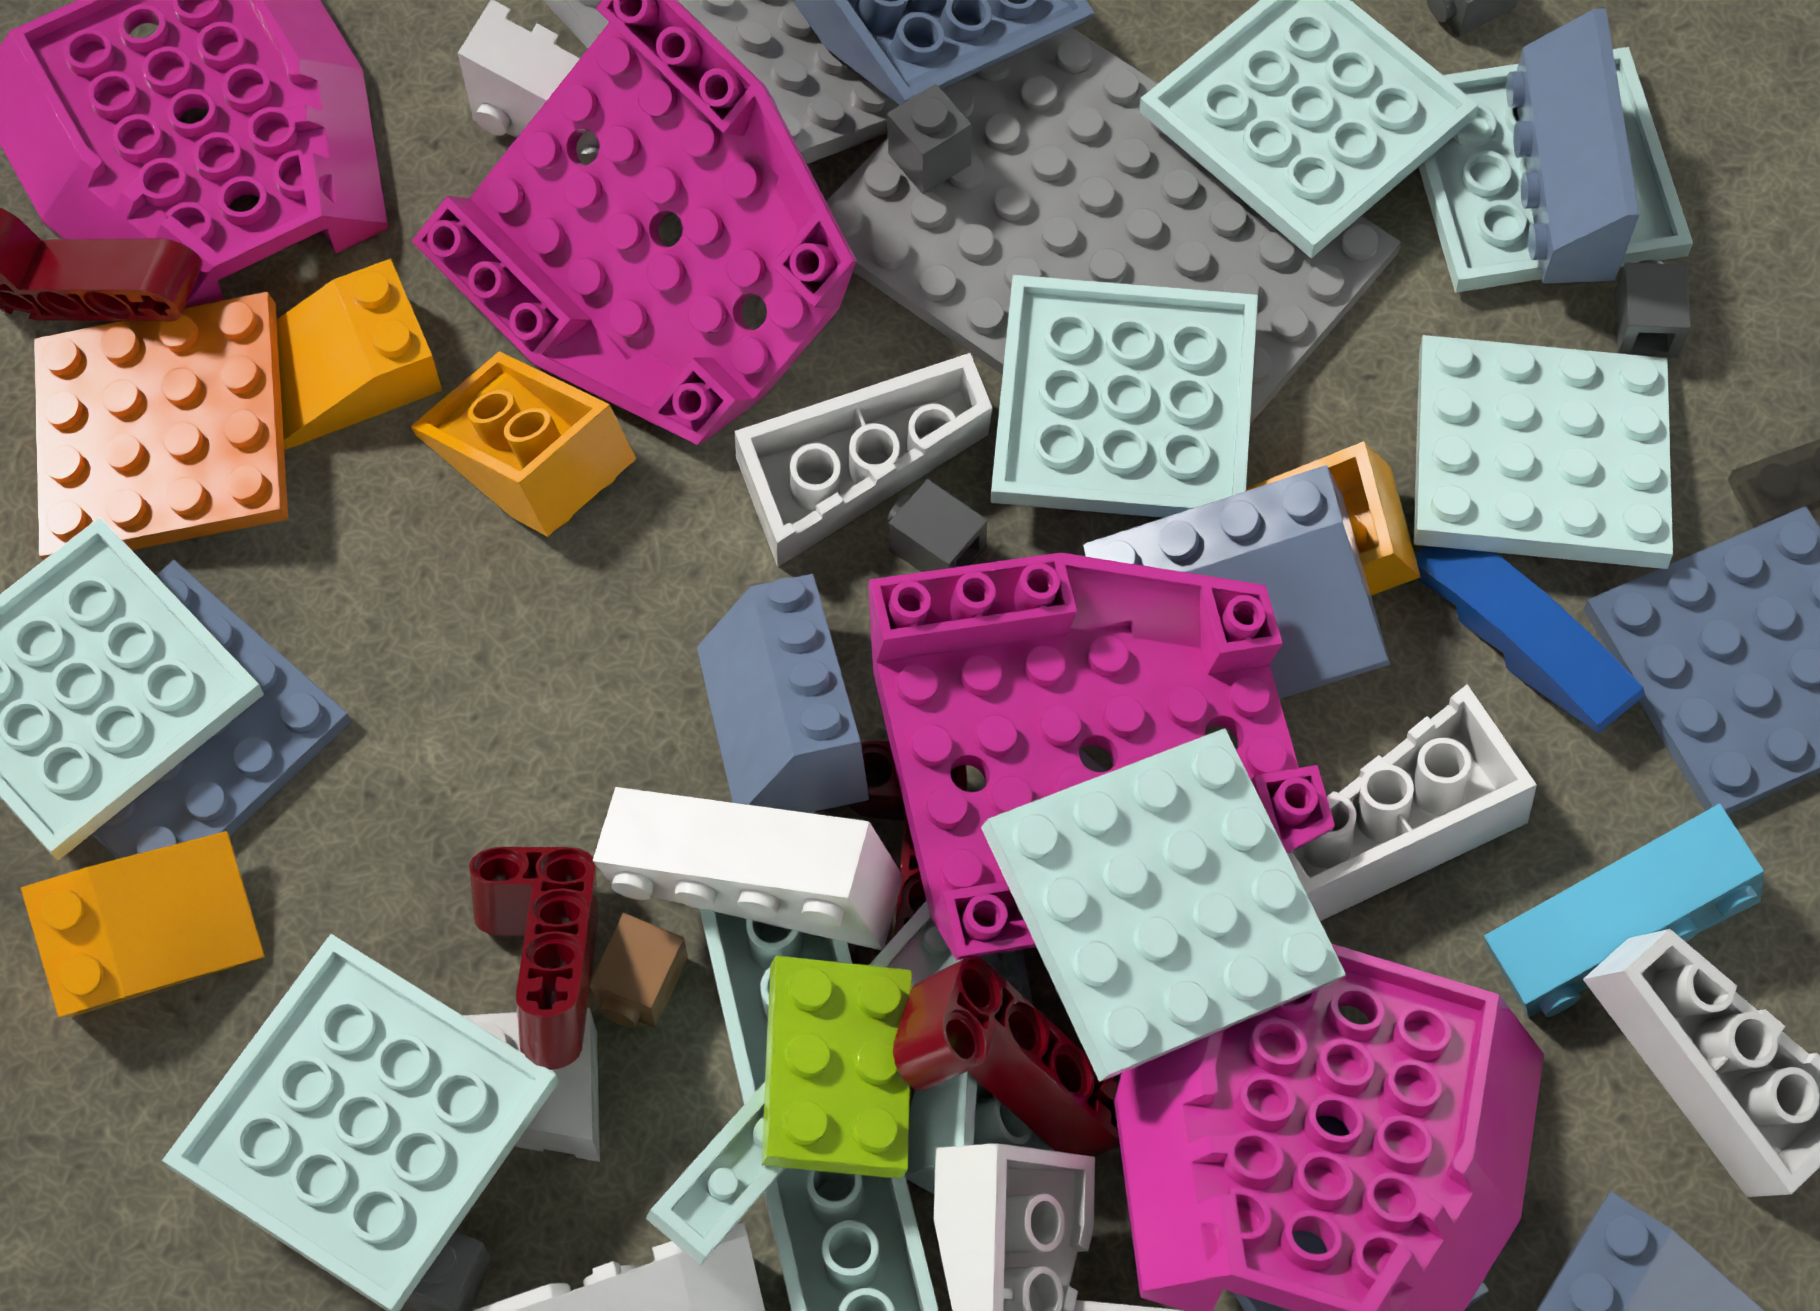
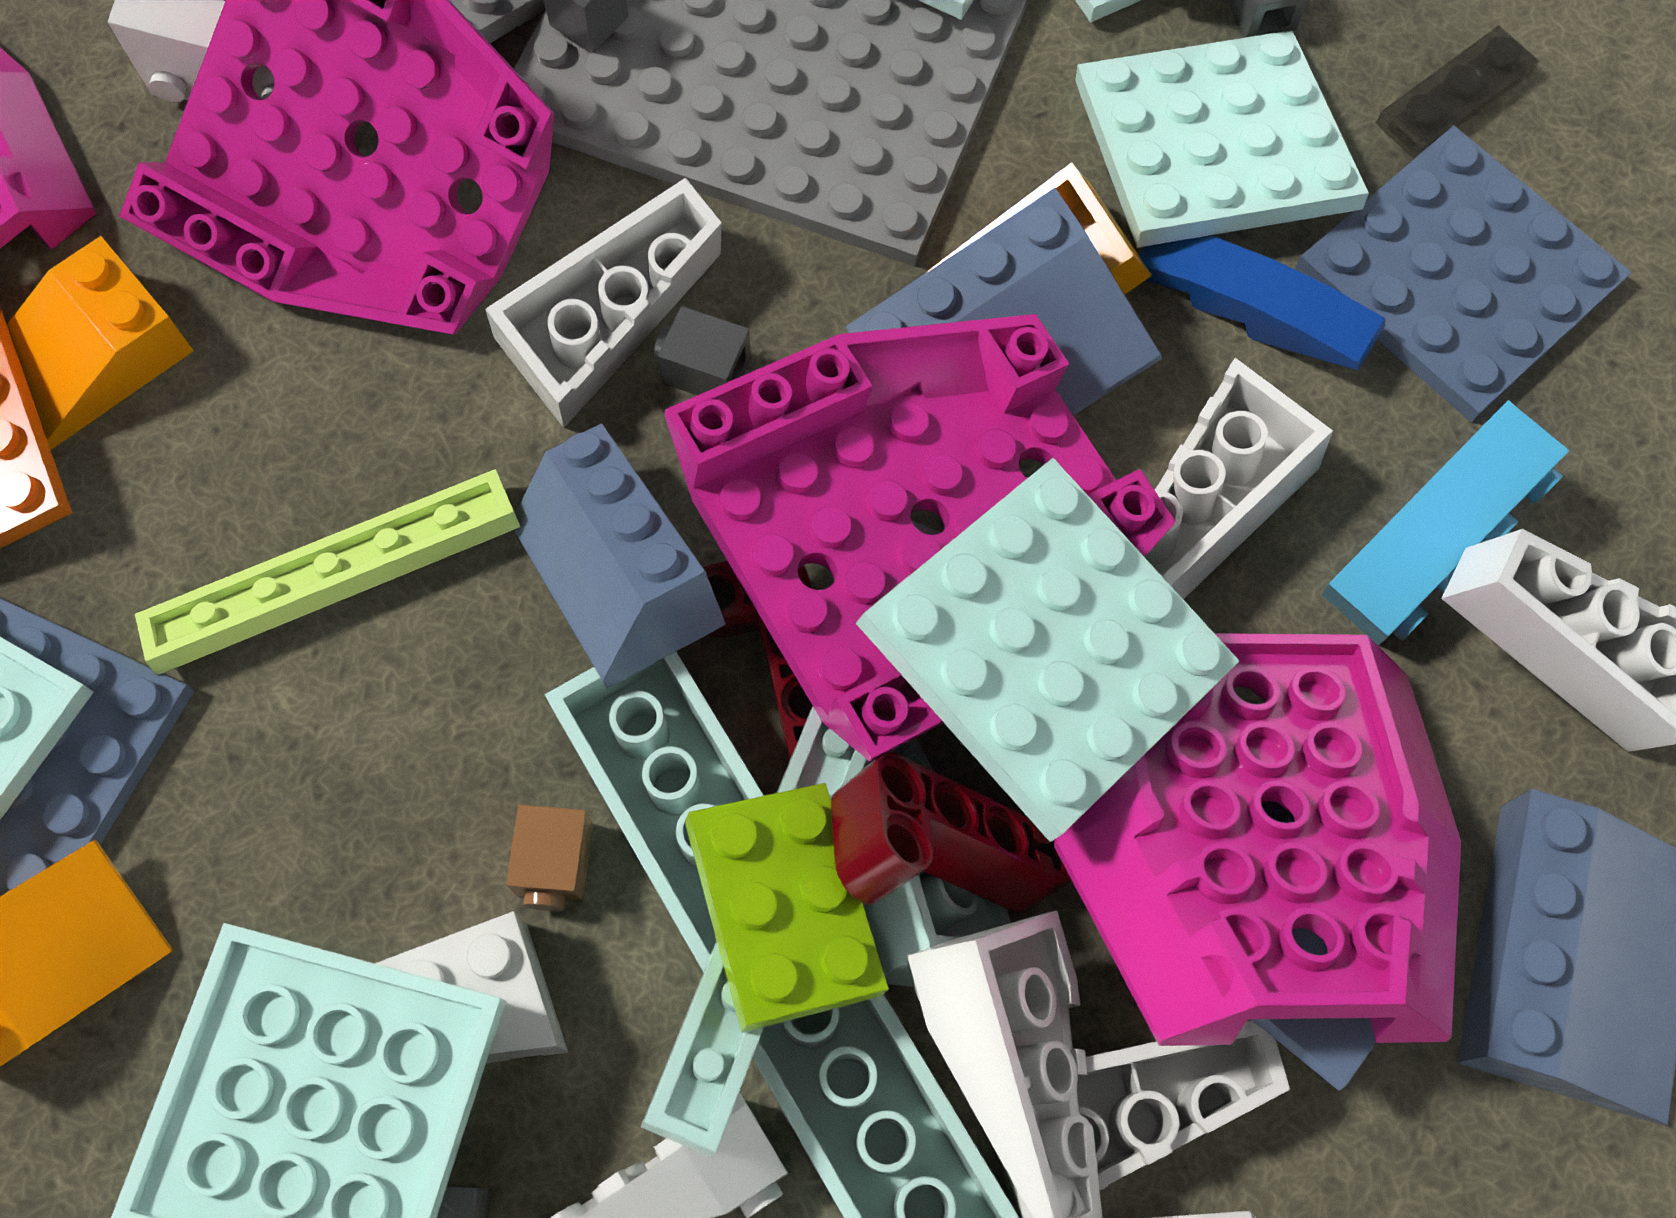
camera: 20 degrees left, 5 degrees up
(510, 642) = (324, 572): none -> yellowish green plate
(527, 441) = (289, 375): light orange slope -> none
(554, 904) = (447, 815): dark red beam -> none
(752, 863) = (630, 722): white wedge -> none
(1123, 397) = (837, 184): light aqua plate -> none

